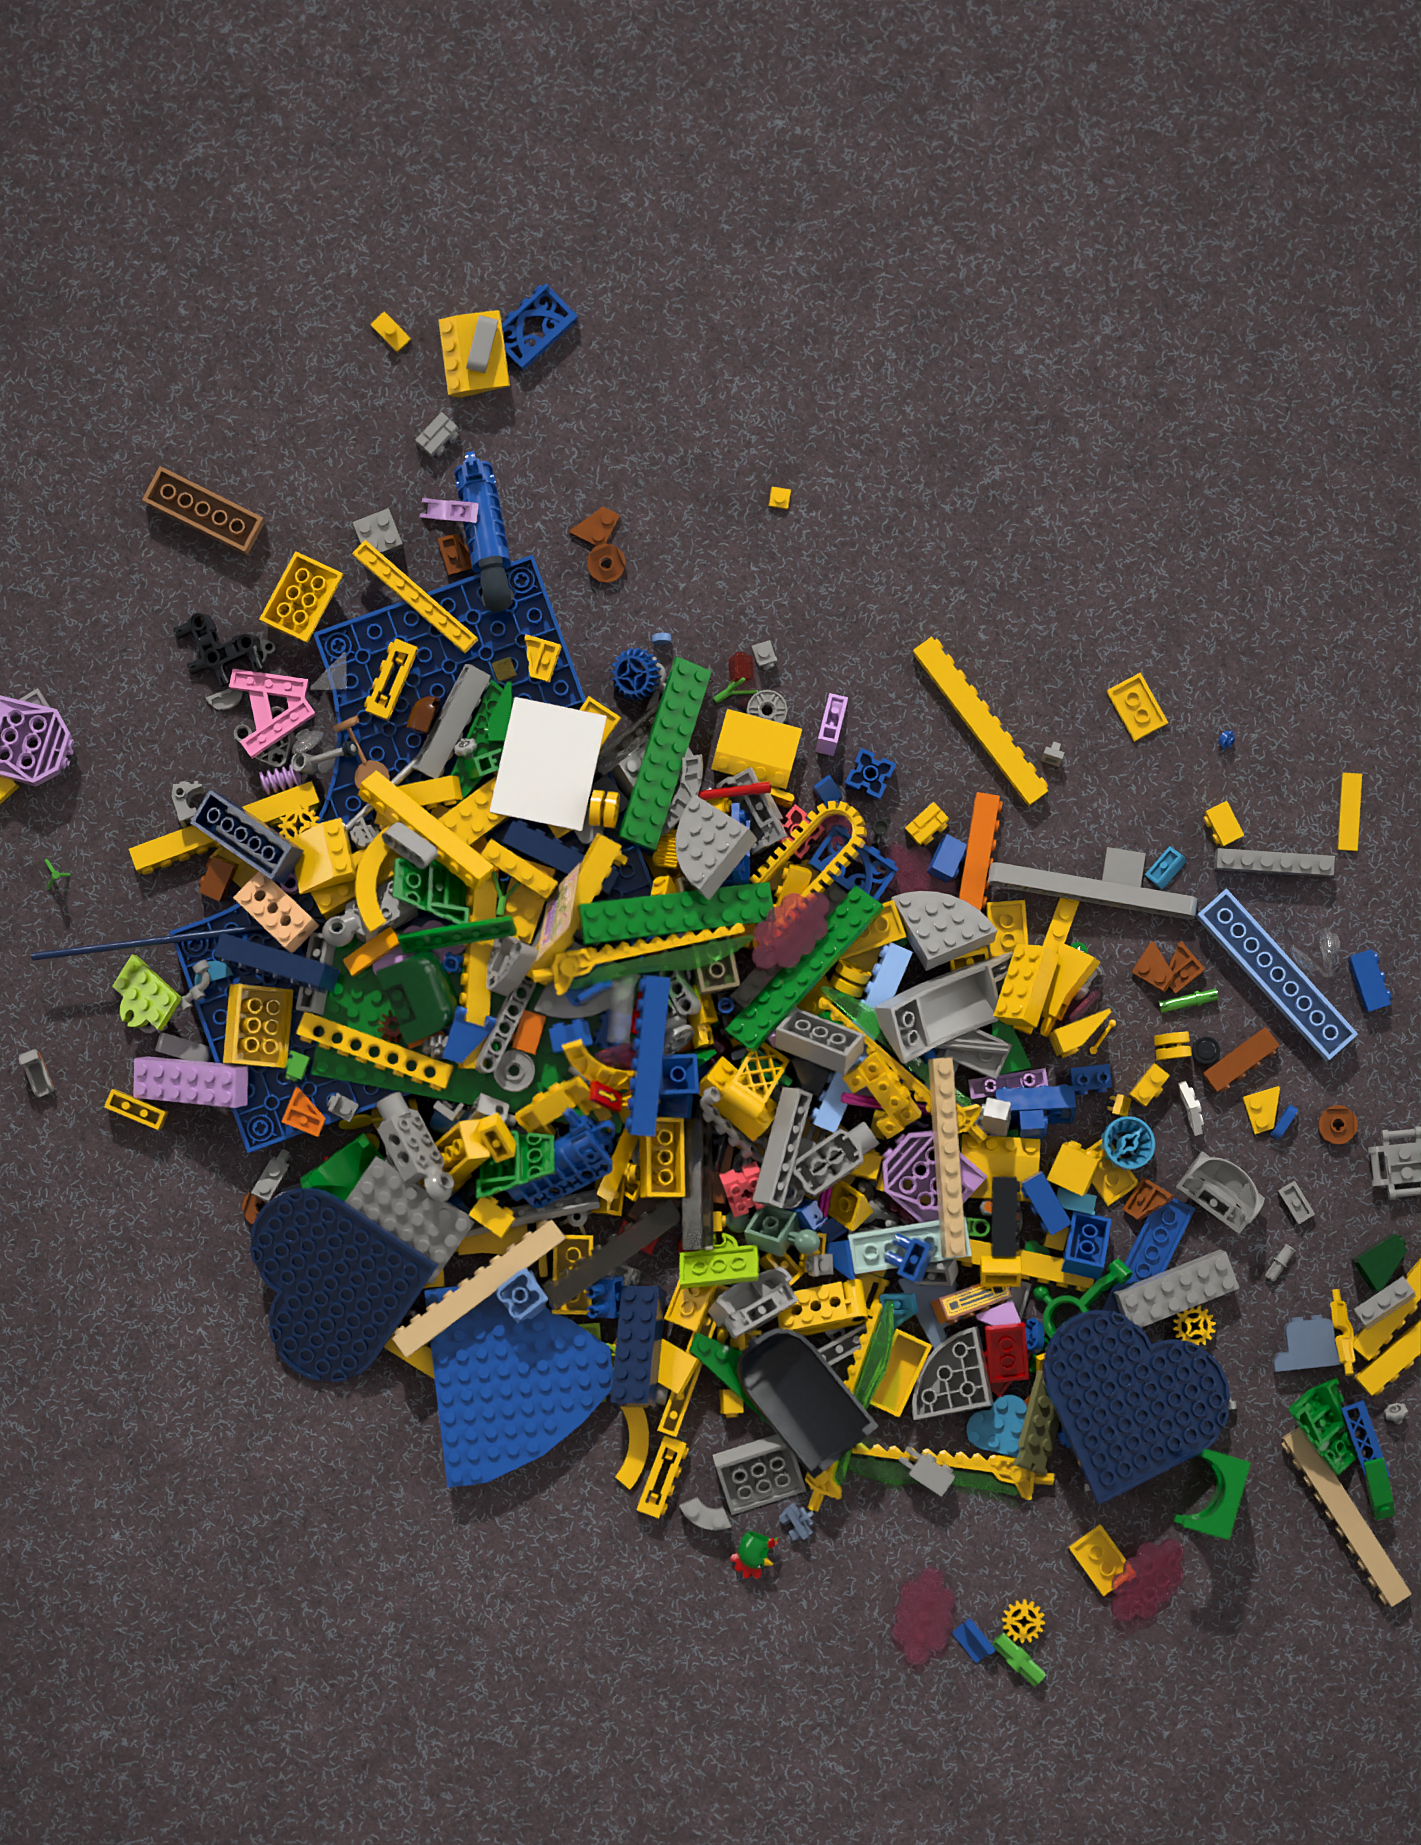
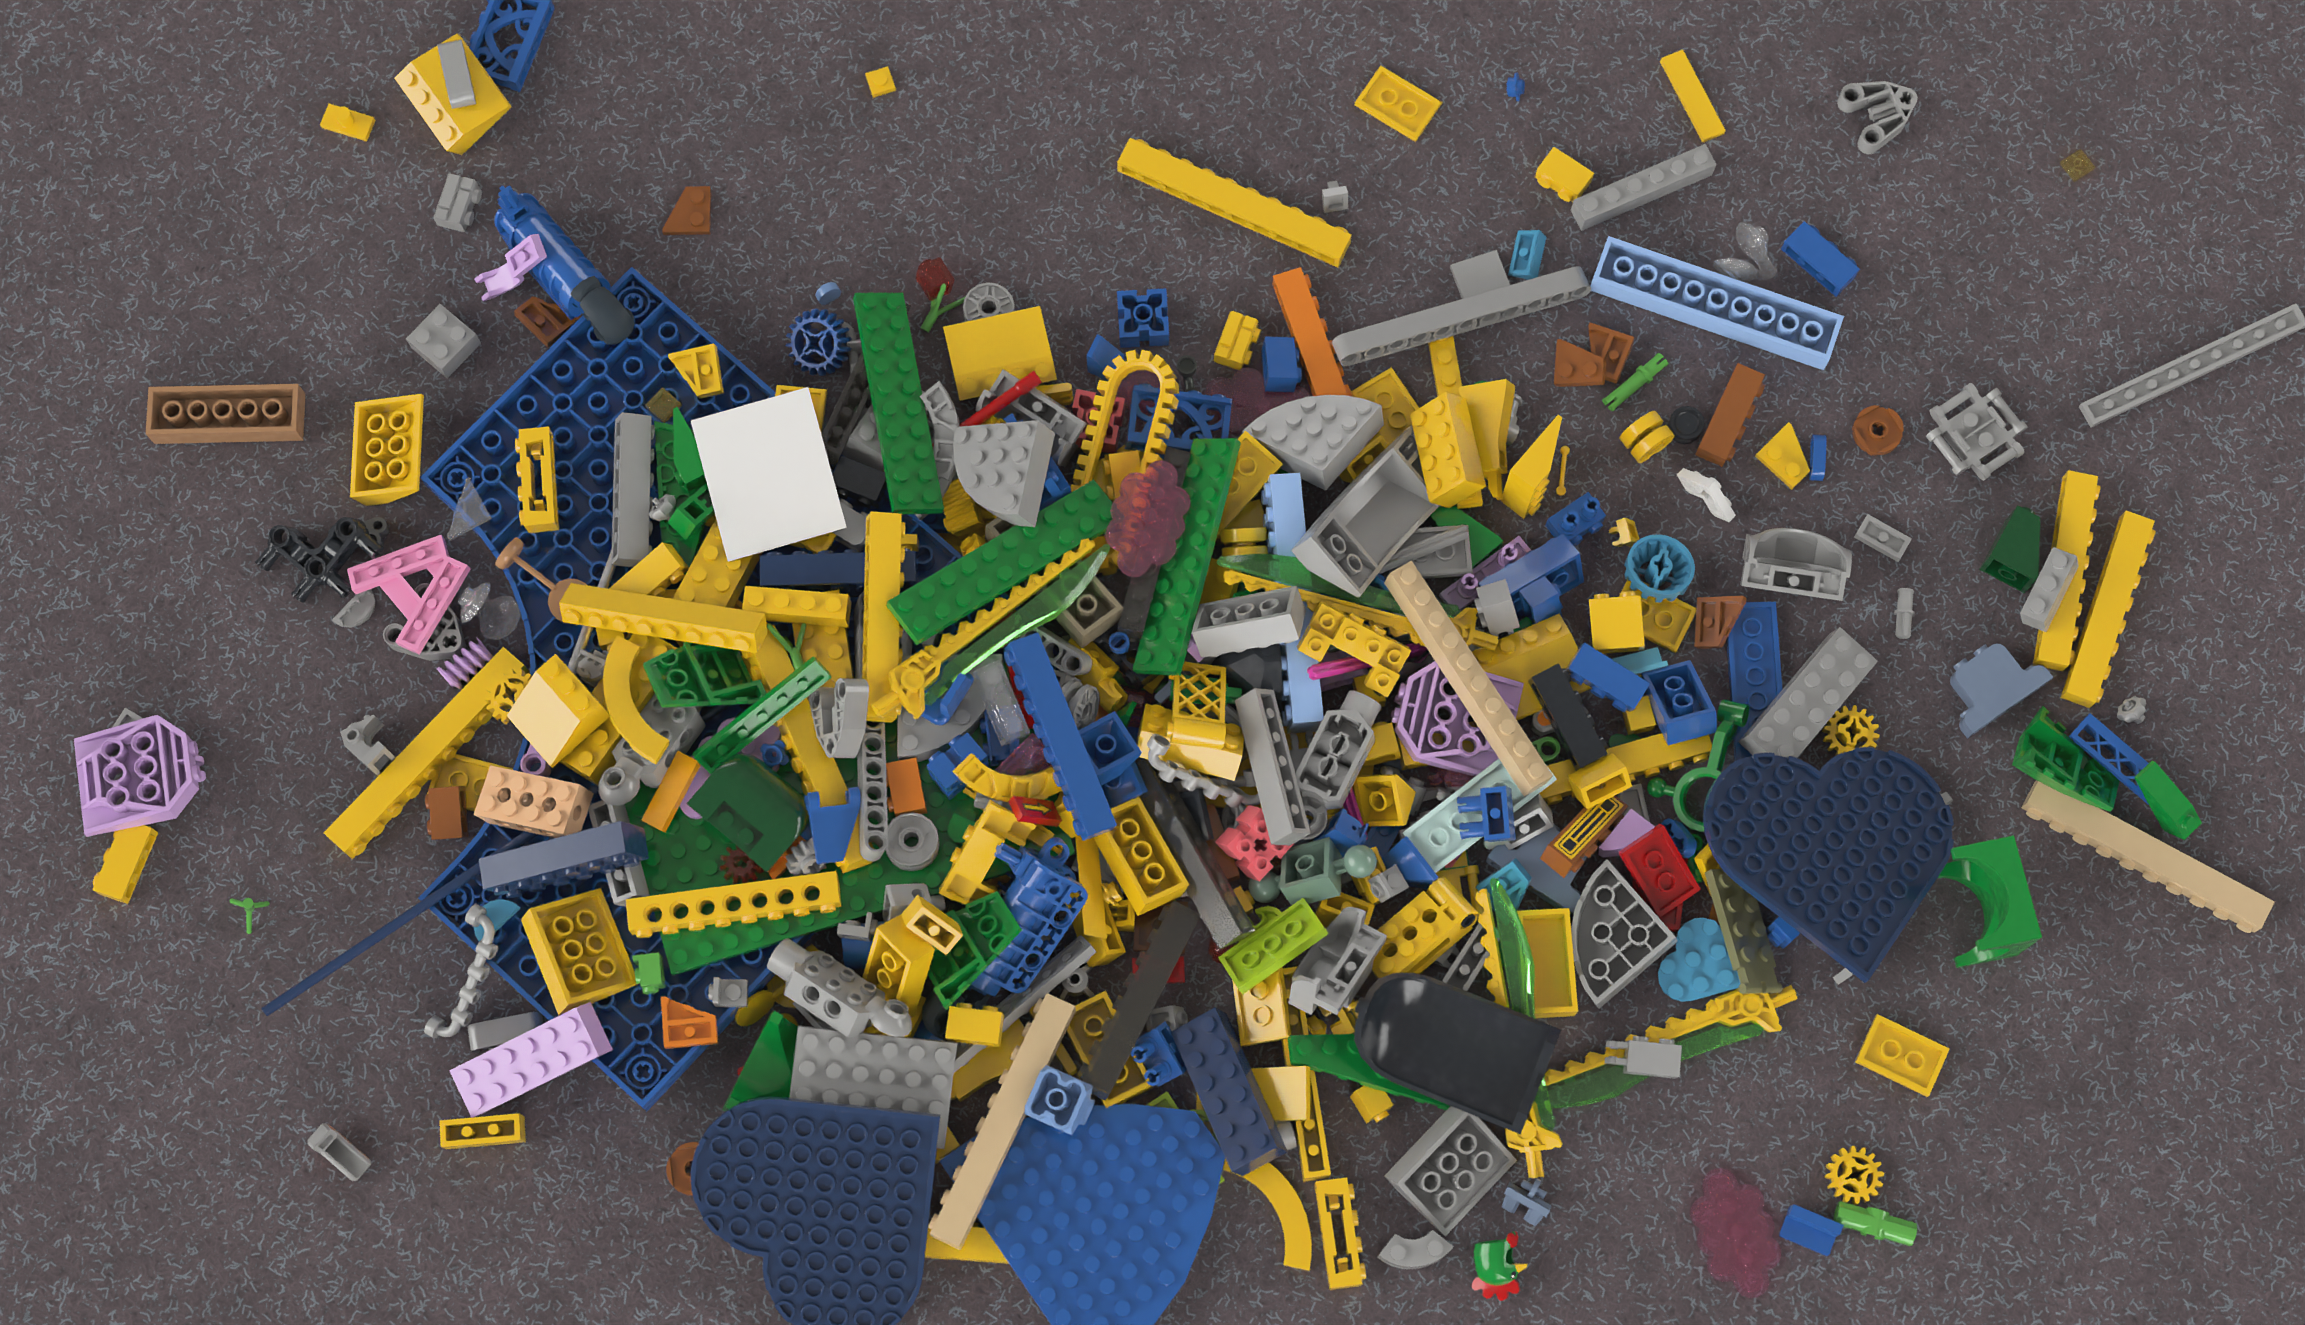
camera: 25 degrees left, 10 degrees down
(145, 995) = (426, 991): lime plate -> none
(247, 836) = (455, 737): dark blue brick -> none
(272, 1177) = (687, 1125): light grey hinge -> none
(309, 764) = (490, 627): light grey piece -> none
(409, 845) = (652, 640): light grey beam -> none
(415, 596) = (519, 377): yellow tile -> none
(423, 714) = (594, 497): reddish brown brick -> none
(558, 911) = (867, 623): sticker -> none
(603, 809) = (860, 490): yellow wheel -> none
(615, 568) = (721, 229): dark orange plate -> none
(764, 655) = (954, 253): light grey bracket -> none
(831, 724) = (1070, 289): lavender slope -> none
(1082, 1007) = (1524, 437): clear pink tile -> none
(1147, 1579) = (1967, 1049): clear pink plate -> none
(1149, 1085) = (1646, 493): yellow brick -> none
(1343, 1342) = (2028, 656): yellow piece -> none

